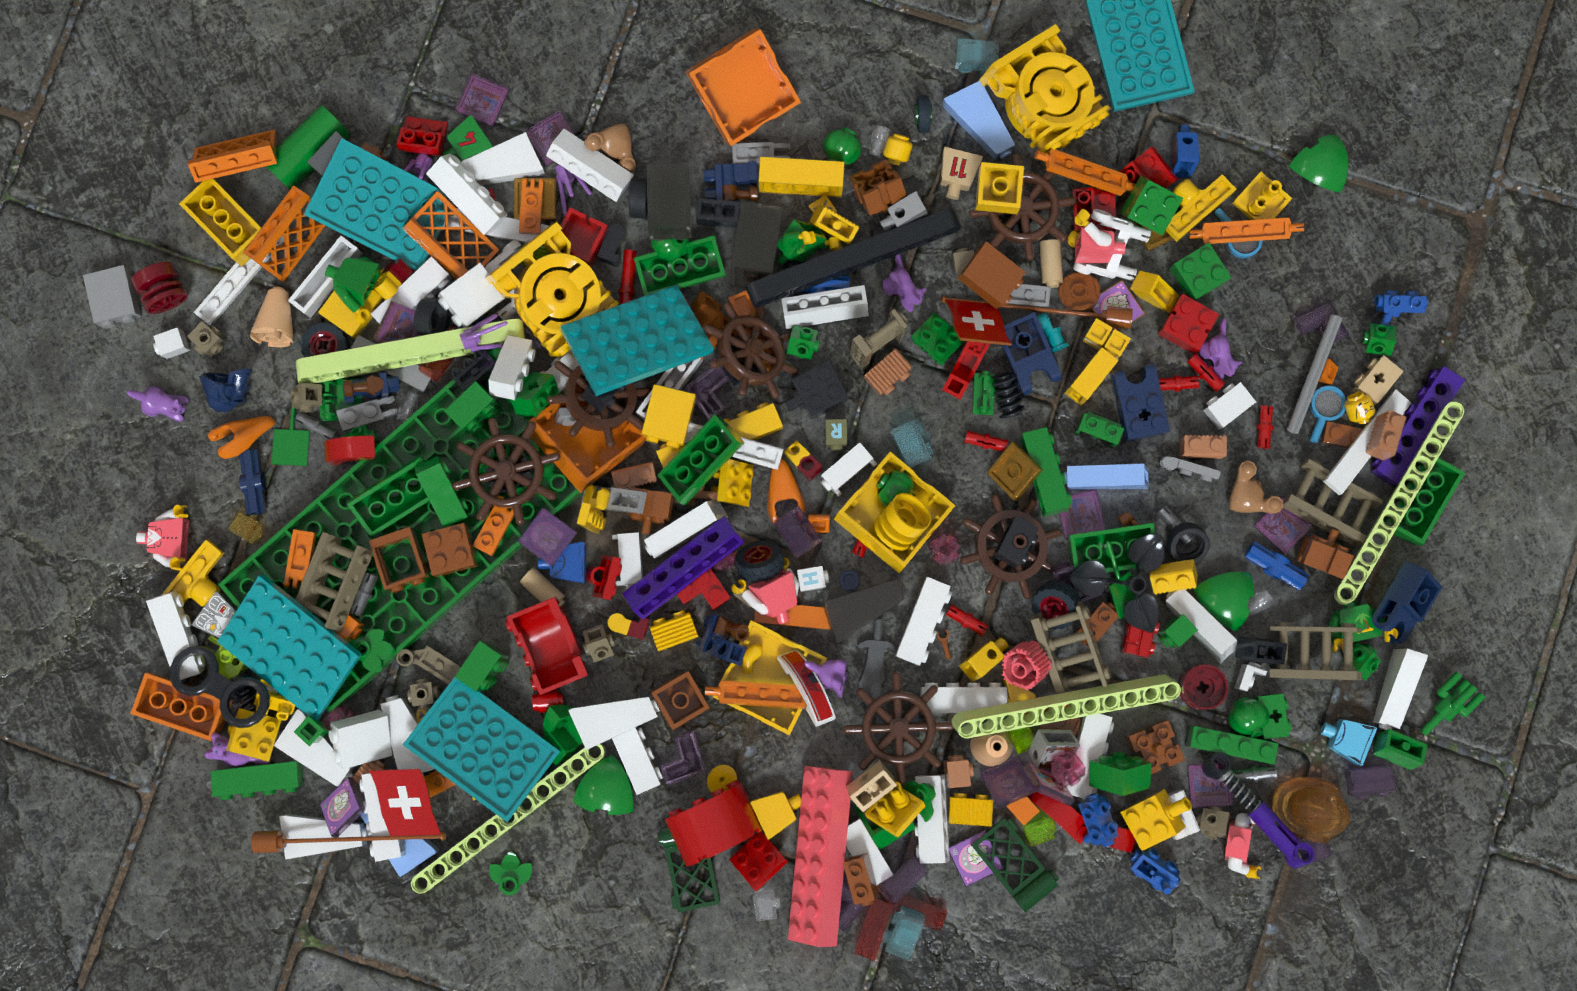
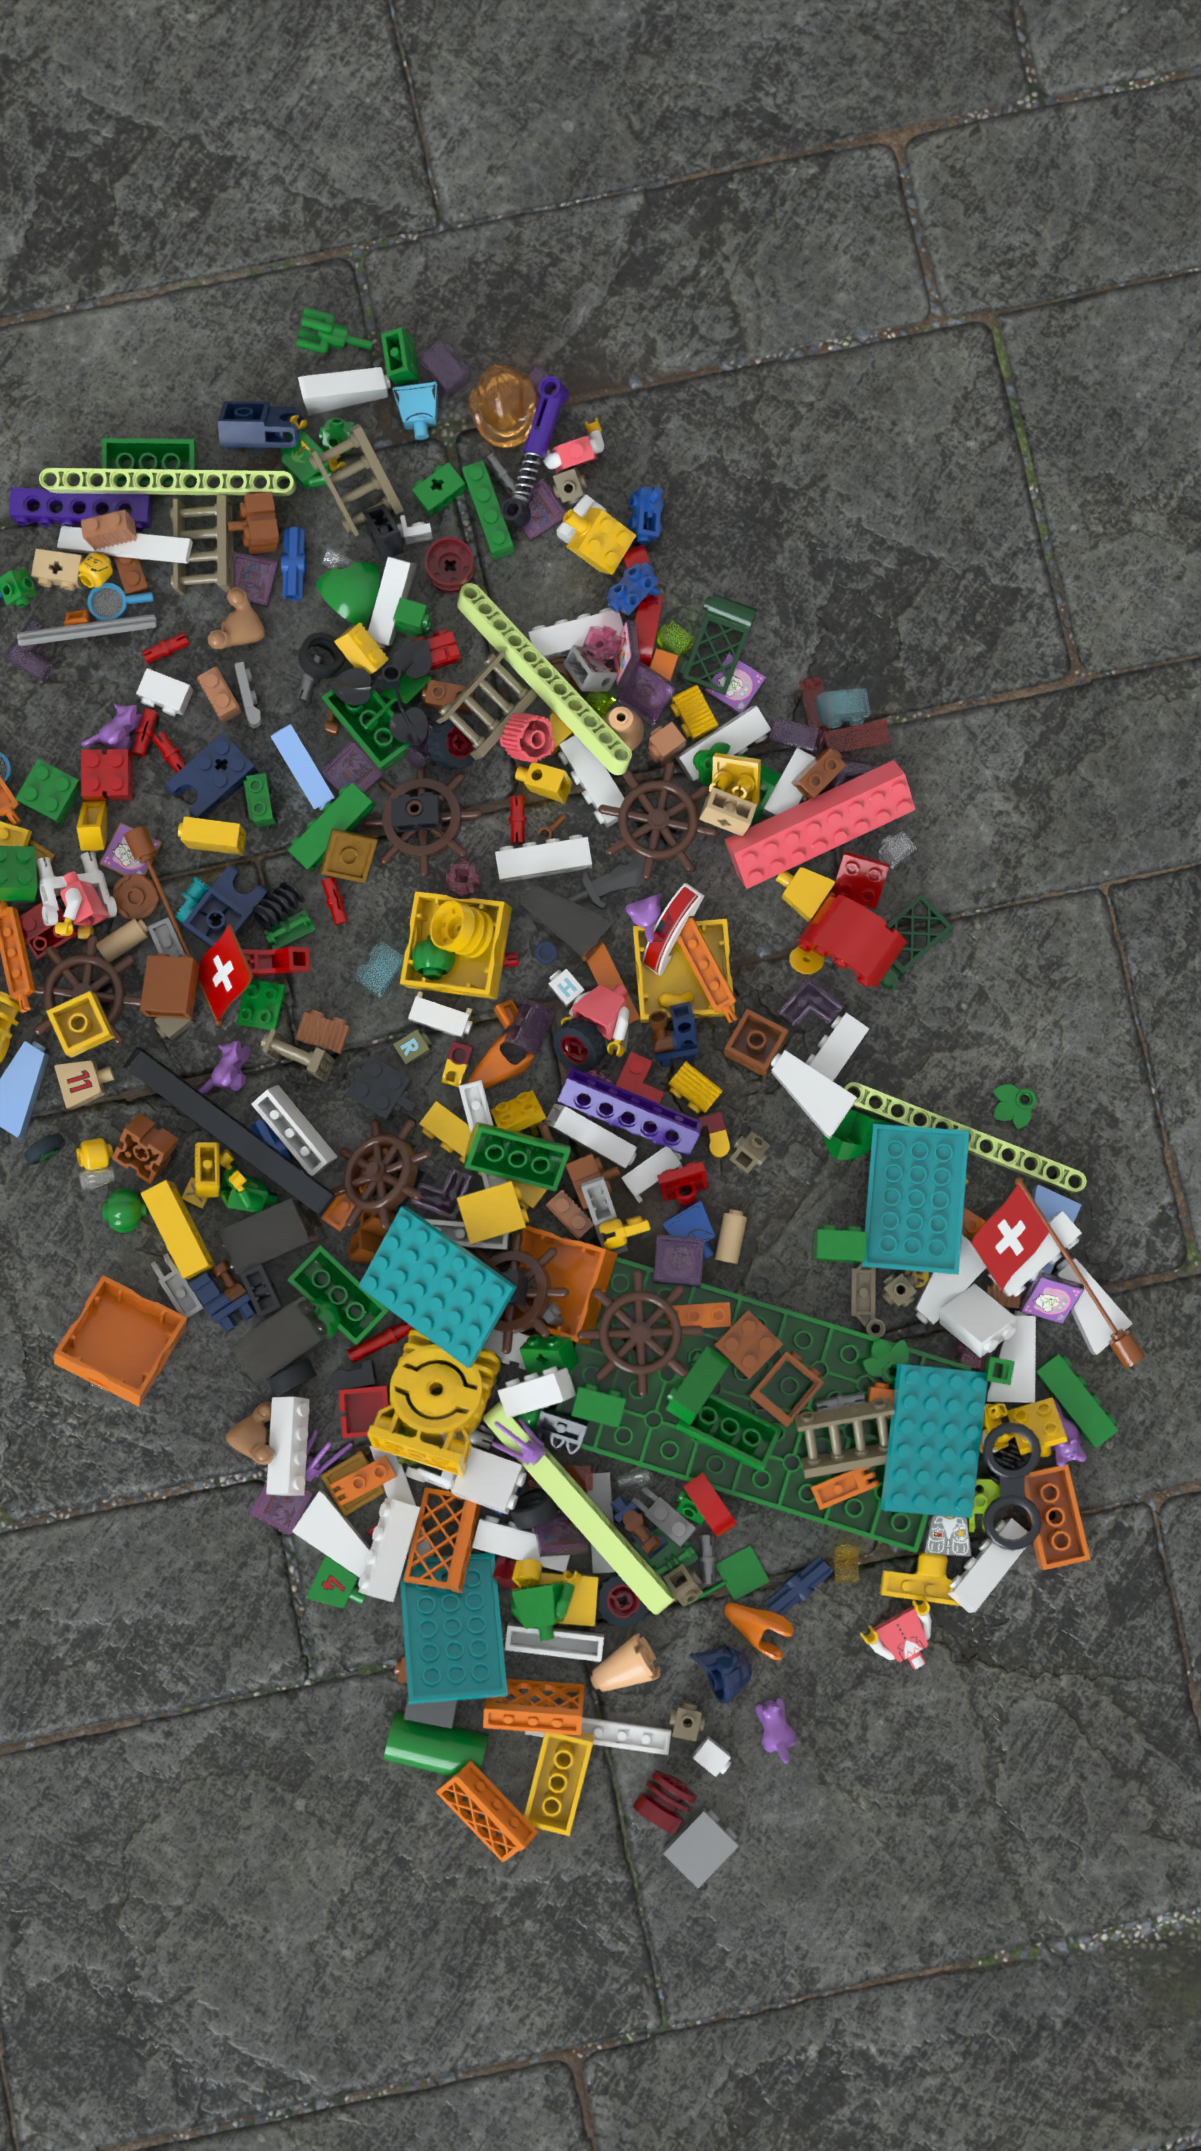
camera: 115 degrees left, 0 degrees up
(420, 166) = (386, 1617): medium lavender plant -> none
(423, 136) = (355, 1634): red brick -> none
(482, 100) = (283, 1599): clear purple tile -> none
(544, 701) = (833, 1169): red brick -> none
(548, 645) = (782, 1196): red cylinder -> none
(605, 788) = (881, 1061): green brick -> none
(803, 342) = (341, 1131): green brick -> none
(911, 206) = (147, 1101): light grey torso -> none
(1100, 337) = (170, 847): yellow hips -> none
(1120, 774) = (577, 593): green brick -> none
(1156, 745) = (533, 578): dark orange brick -> none
(1248, 717) = (452, 508): green plant -> none

